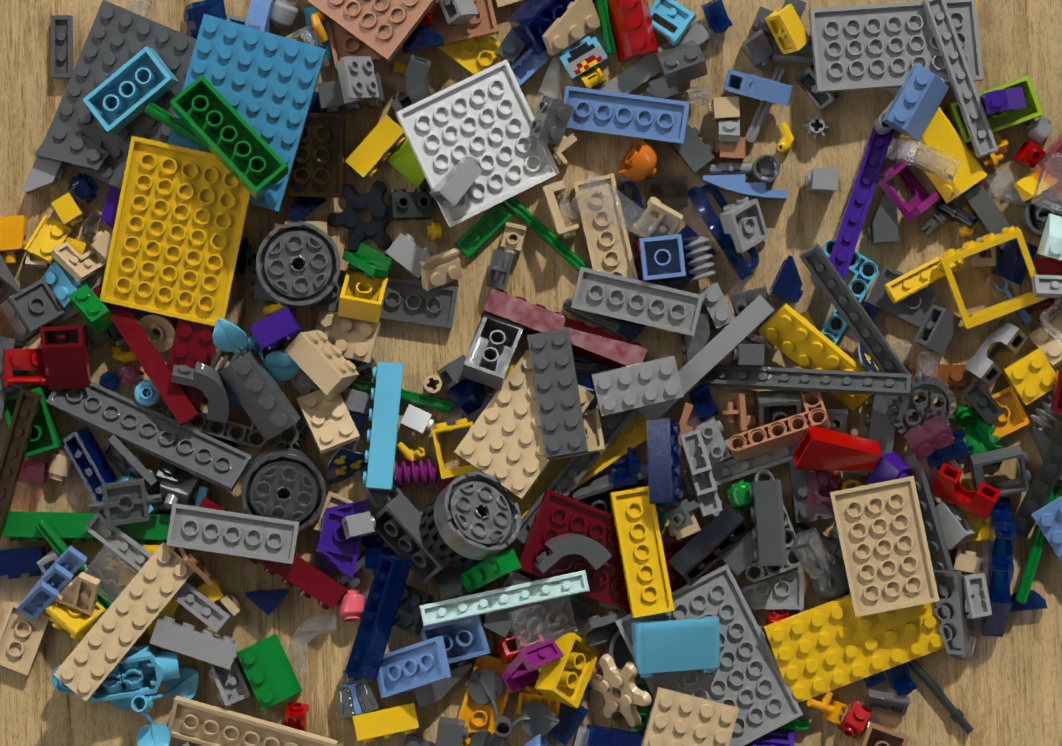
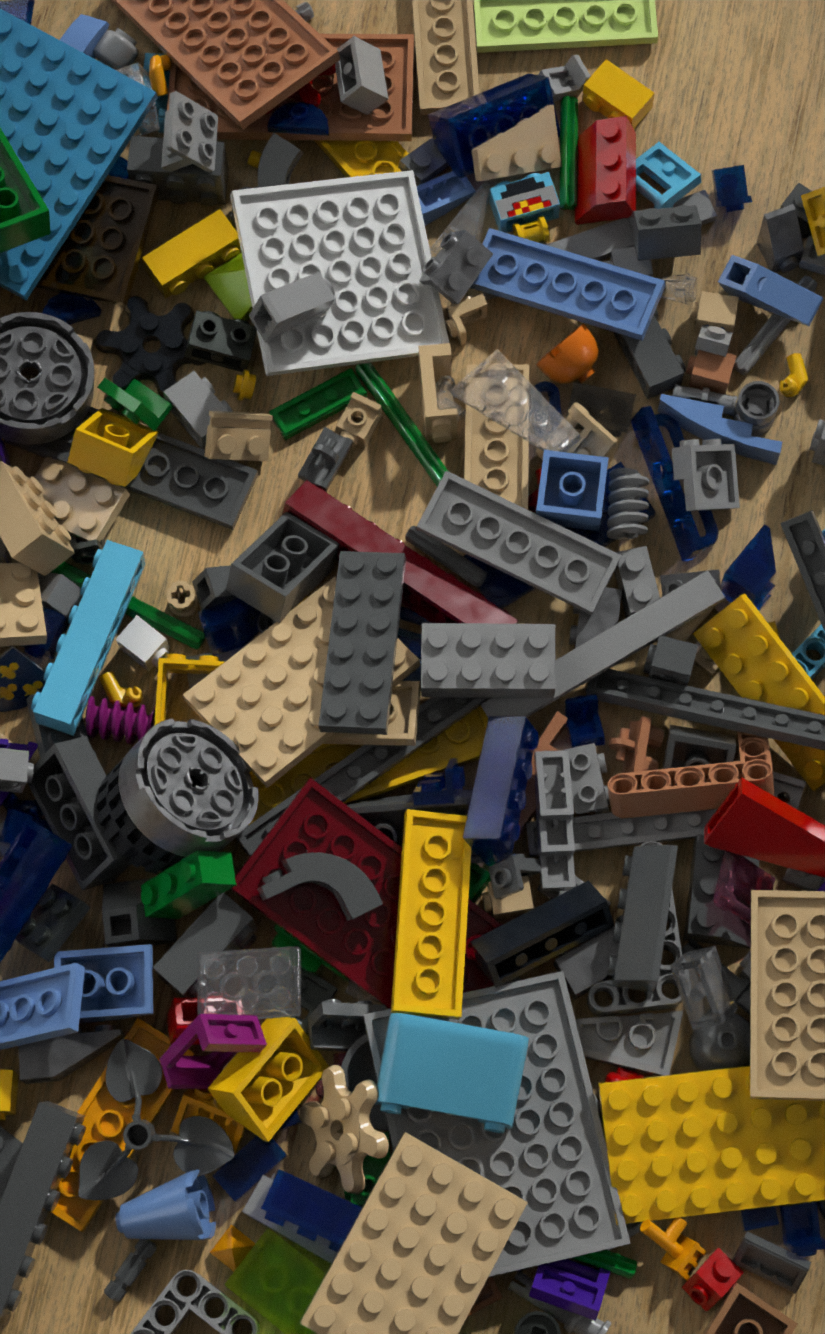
camera: 15 degrees right, 15 degrees down
(504, 598) = (197, 930): light aqua tile -> none
(739, 495) = (606, 873): green head -> none

